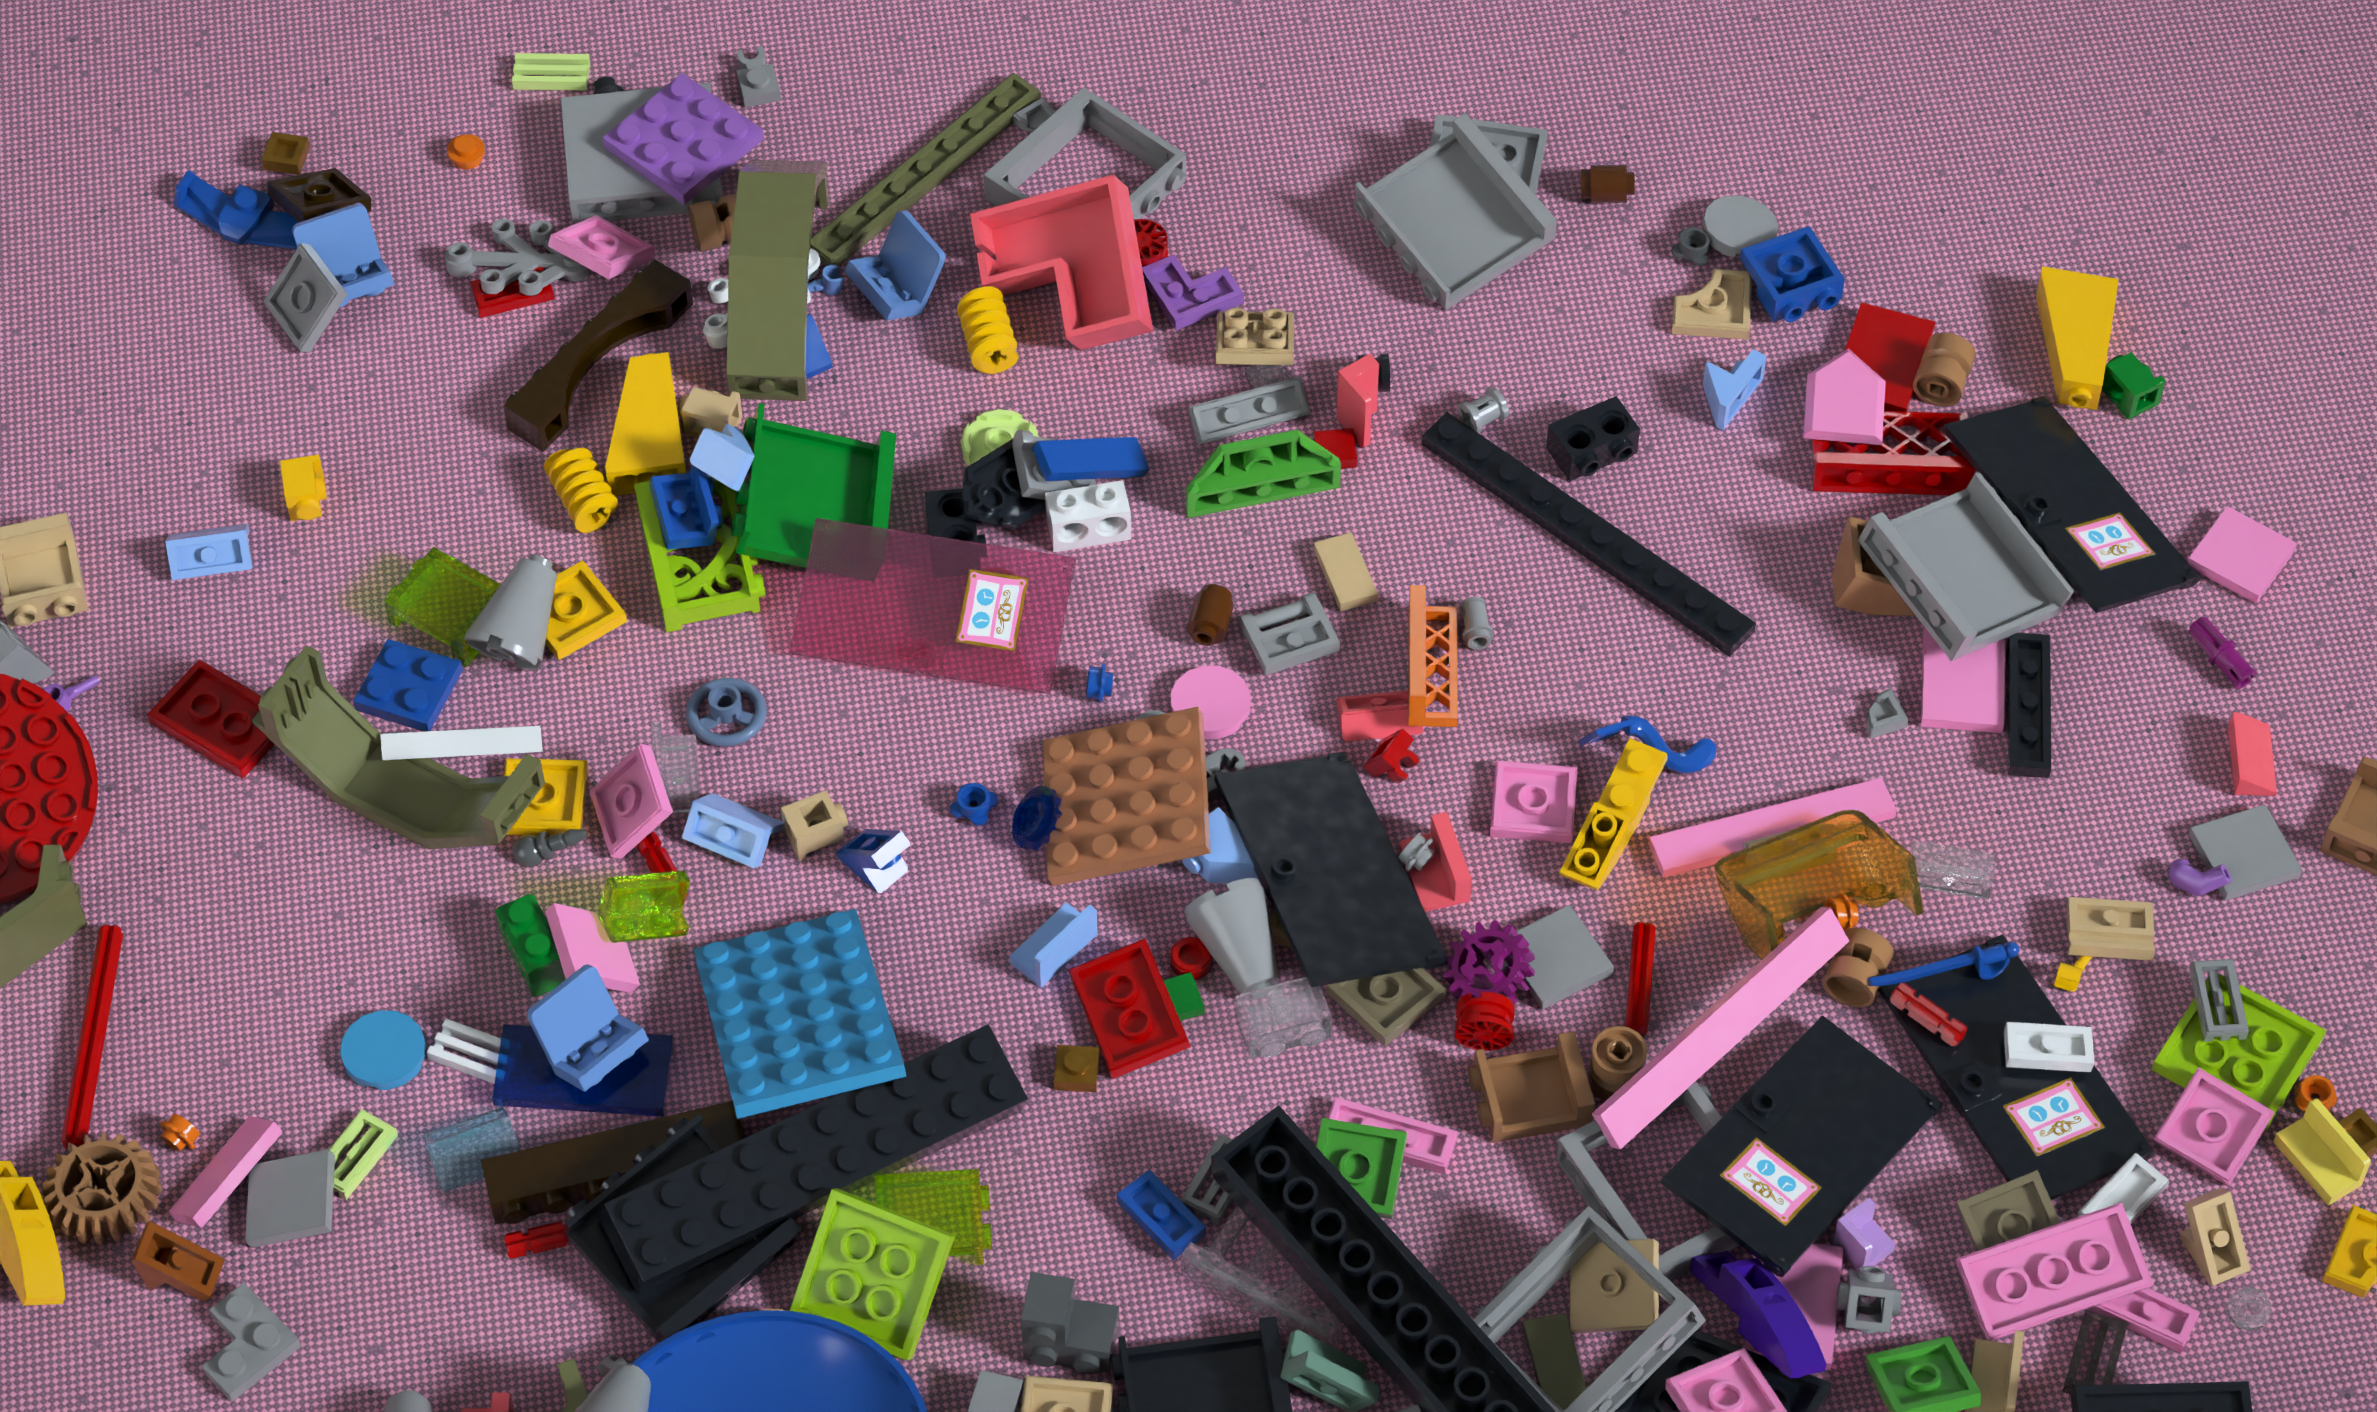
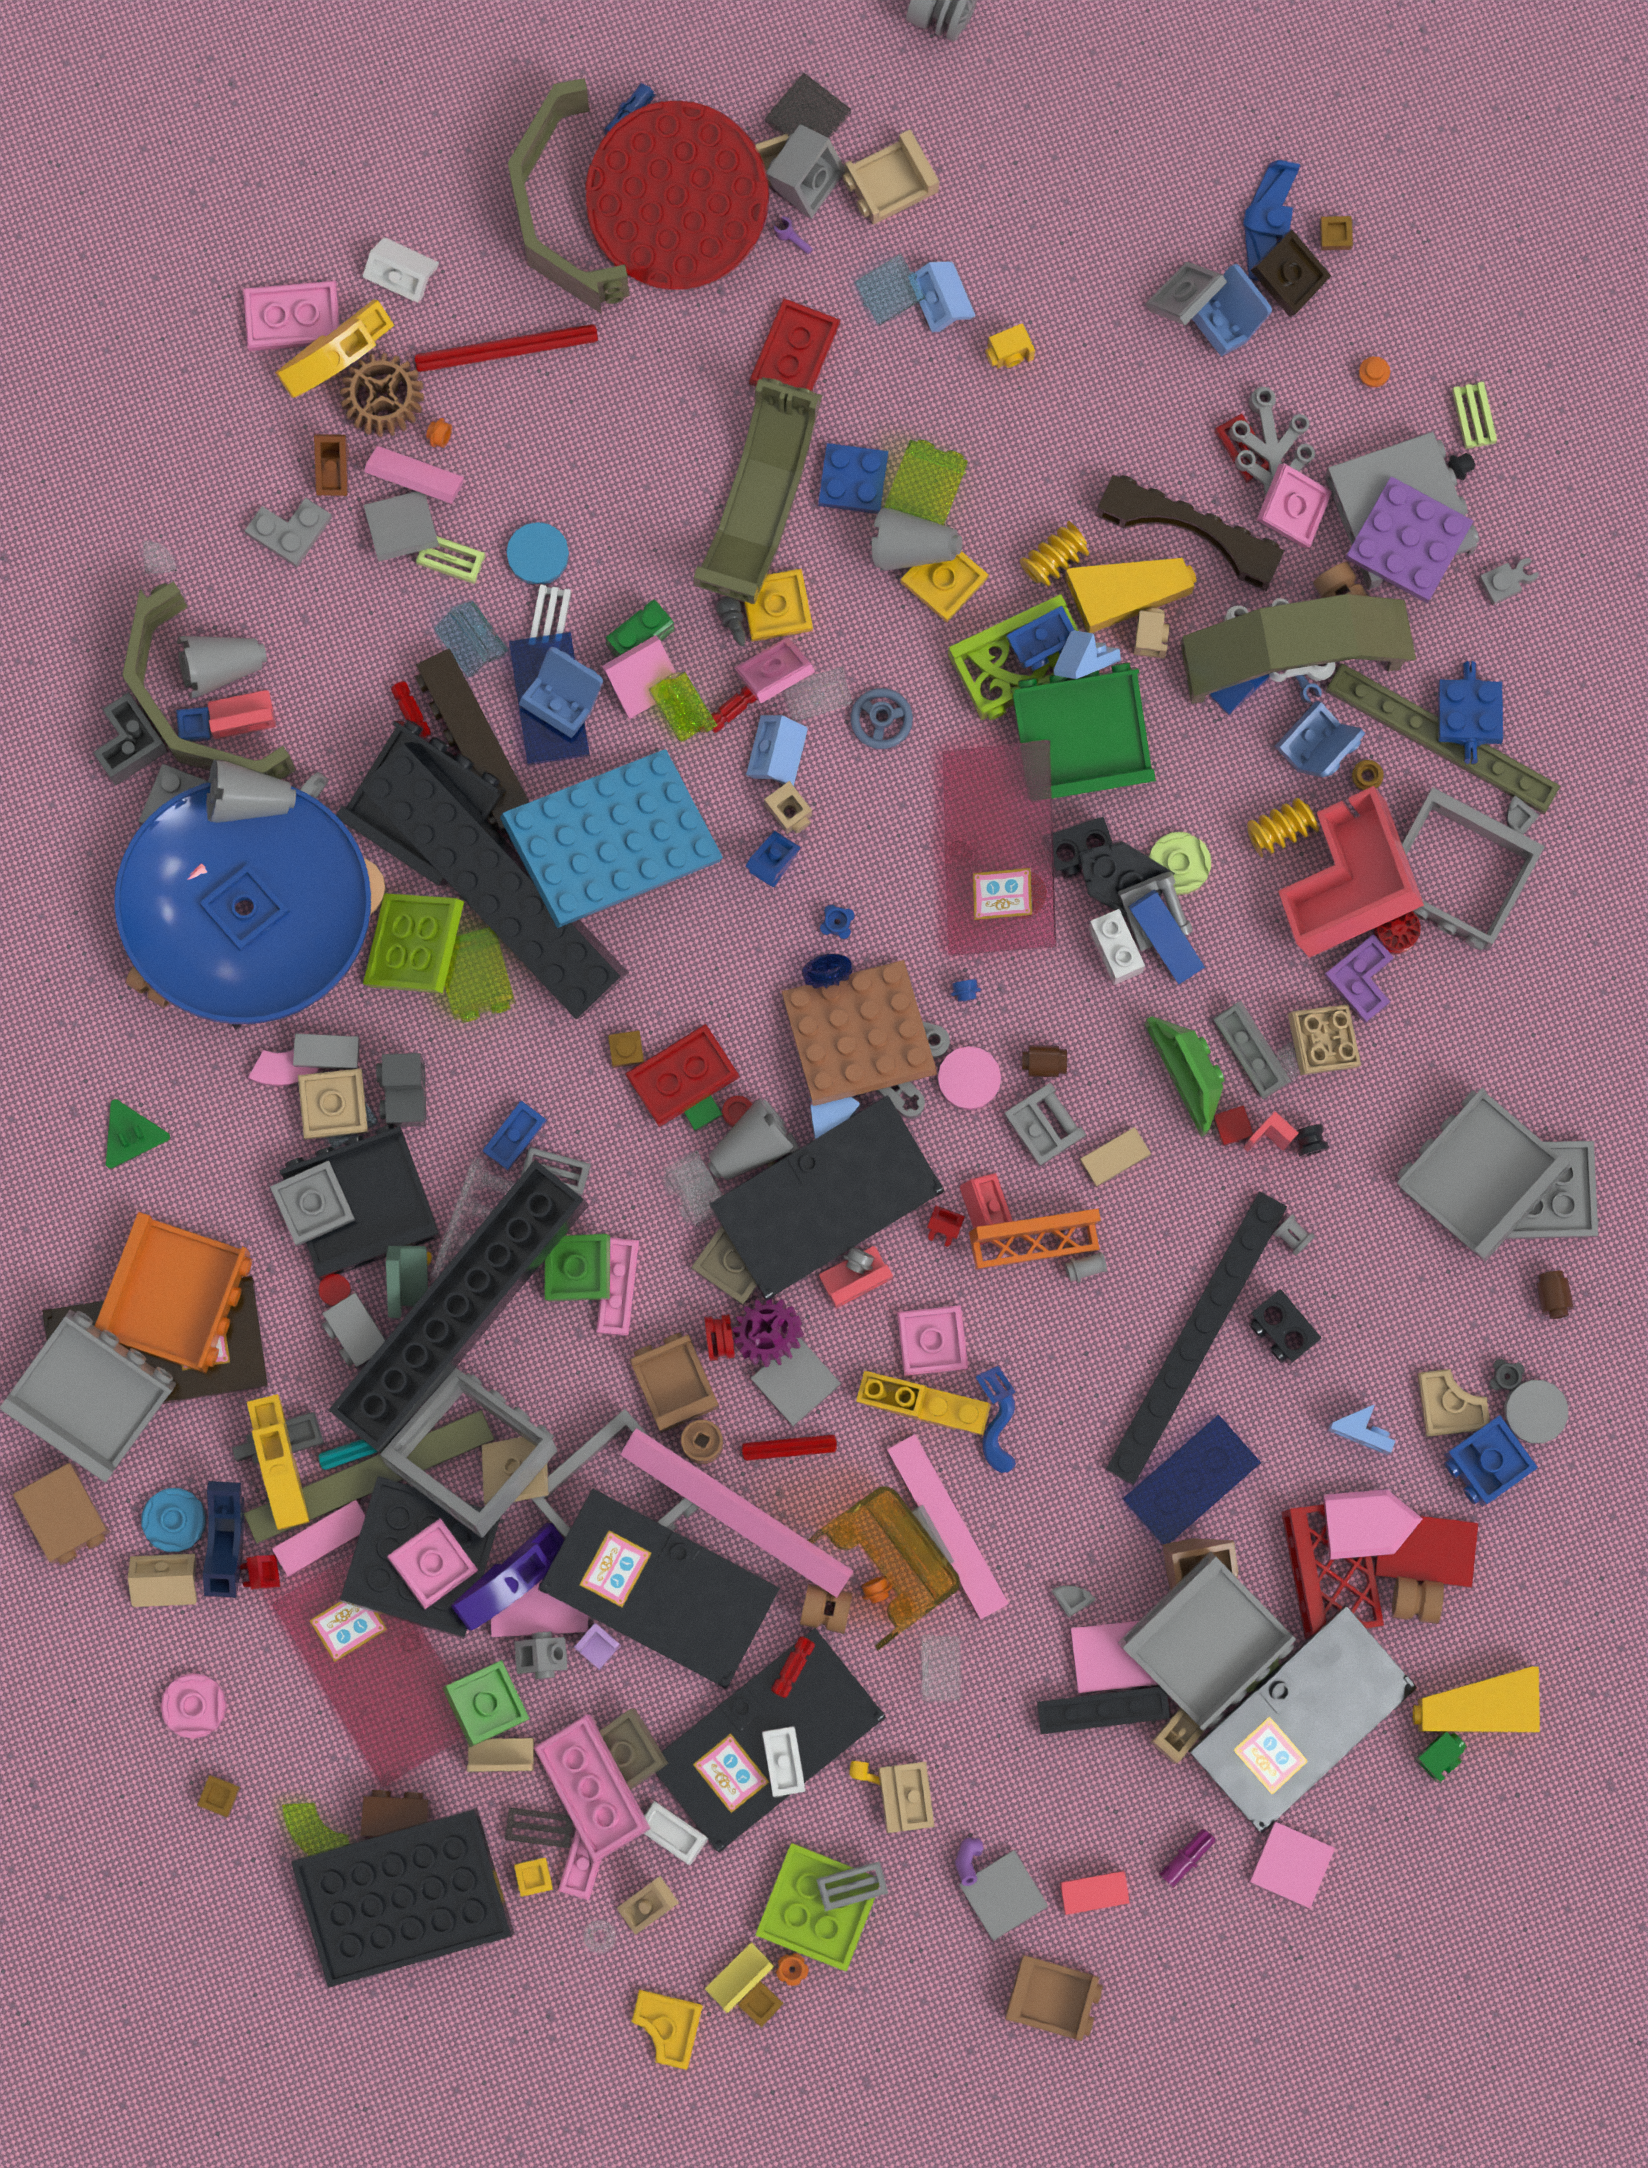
camera: 75 degrees right, 25 degrees up
(181, 600) = (890, 289): none -> clear light blue piece
(461, 742) = (809, 532): white sticker -> none
(903, 132) = (1470, 712): none -> blue plate
(950, 241) = (1372, 767): none -> pearl gold plate
(1055, 943) = (727, 1008): light blue panel -> none
(1760, 569) = (1191, 1480): none -> clear blue tile
(1987, 961) = (849, 1703): blue sword -> none
(2076, 636) = (1177, 1736): none -> tan slope
(2161, 1365) = (533, 1877): none -> yellow plate
(2213, 1126) = (745, 1894): bright pink tile -> none

